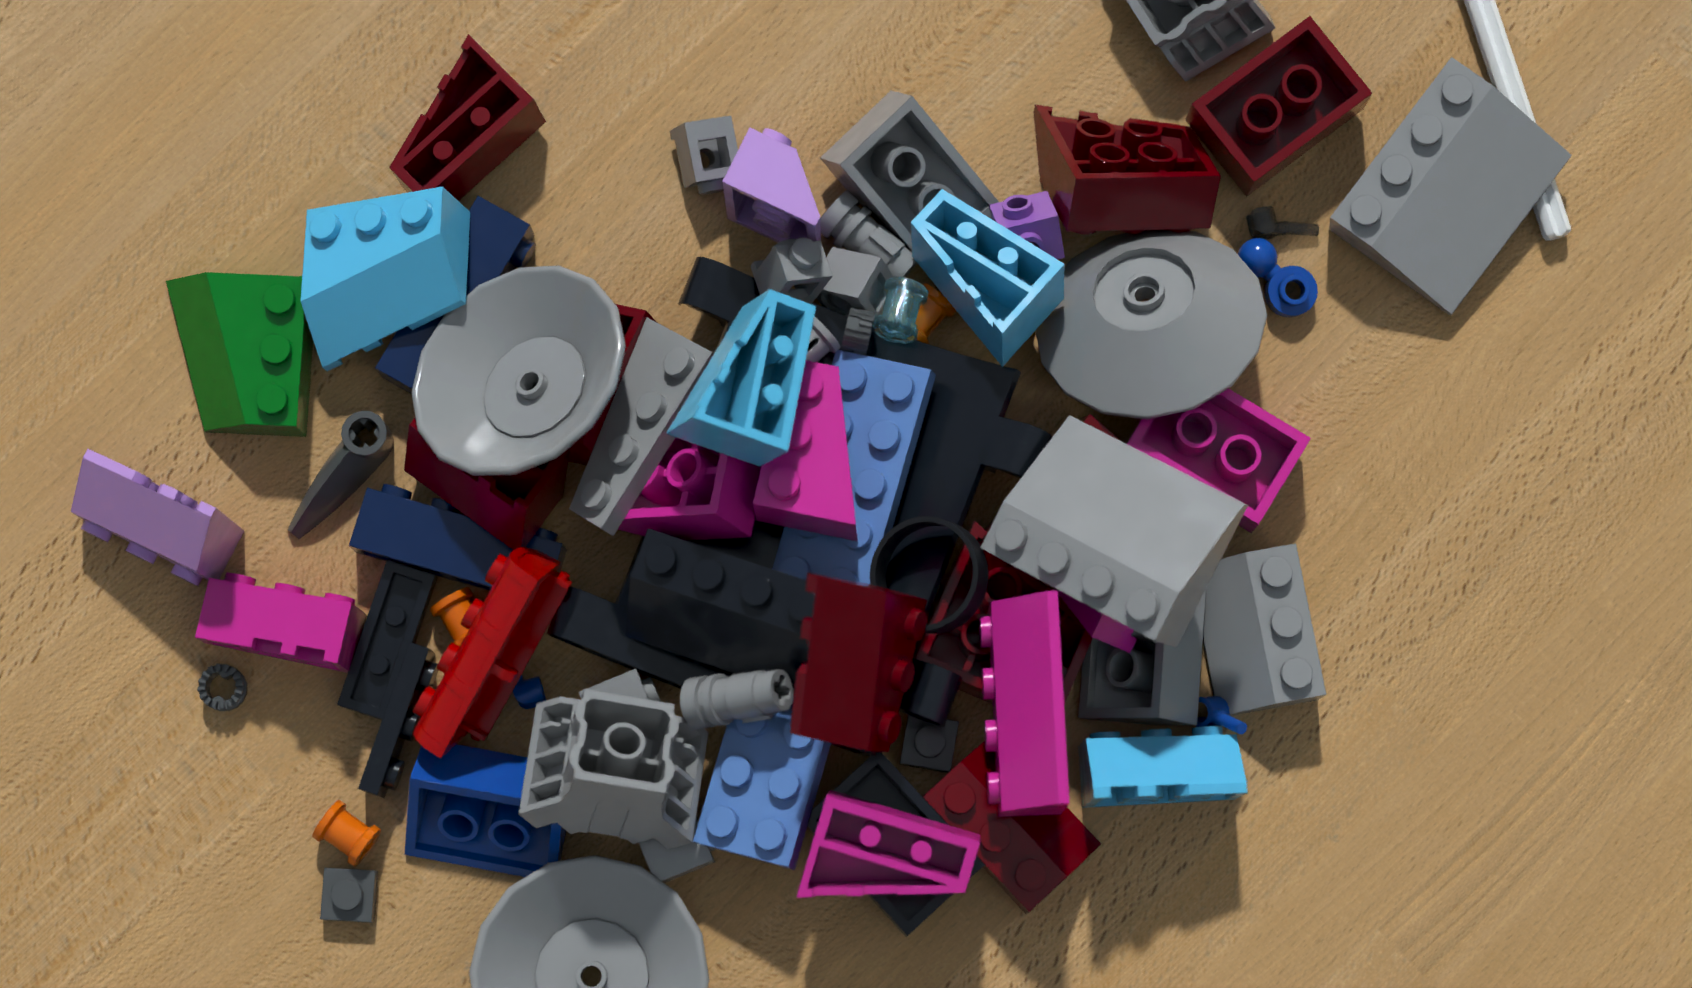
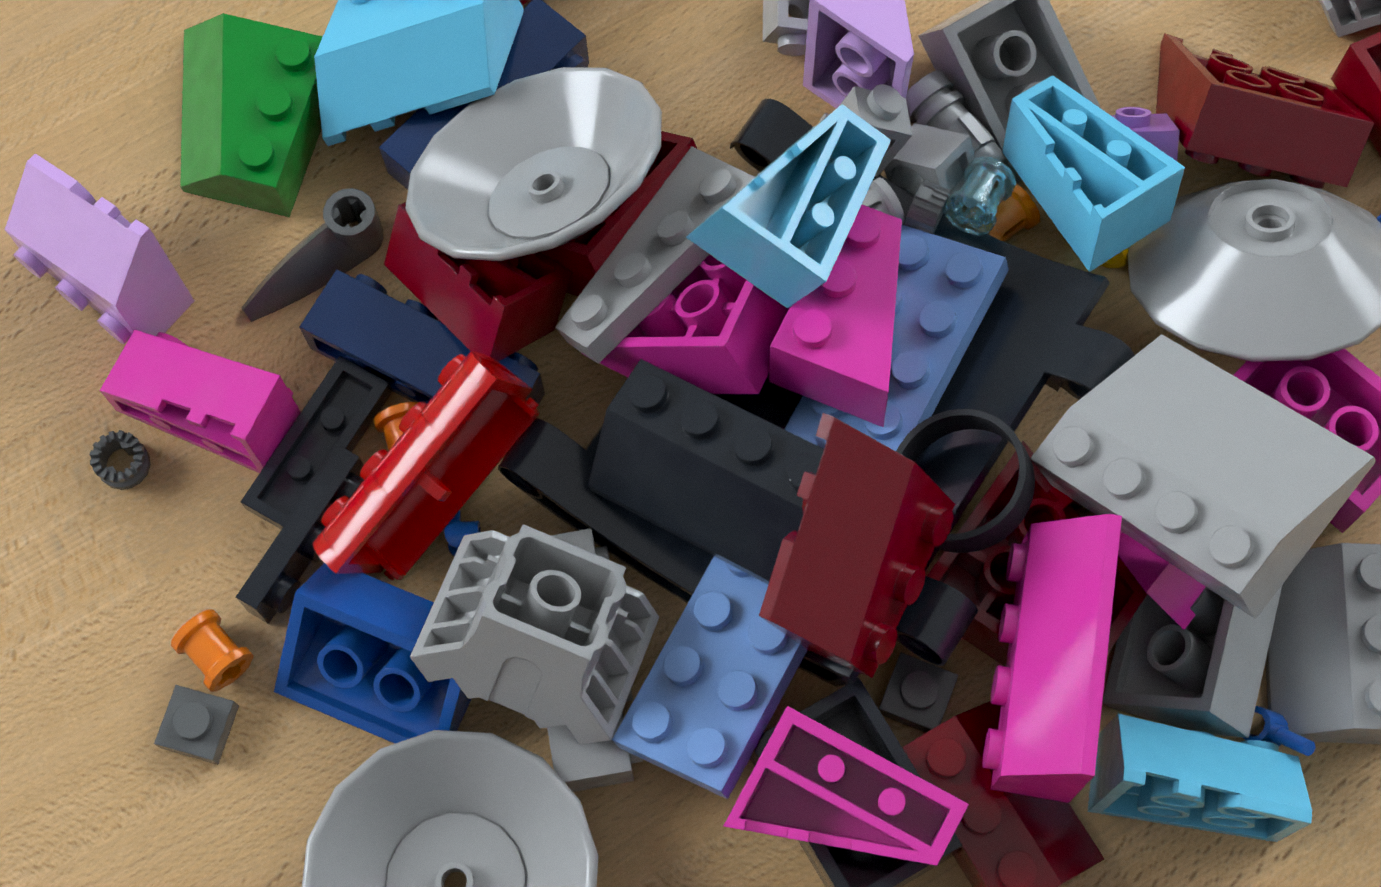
camera: 15 degrees right, 10 degrees down
(742, 696) = (712, 574): light grey axle -> none

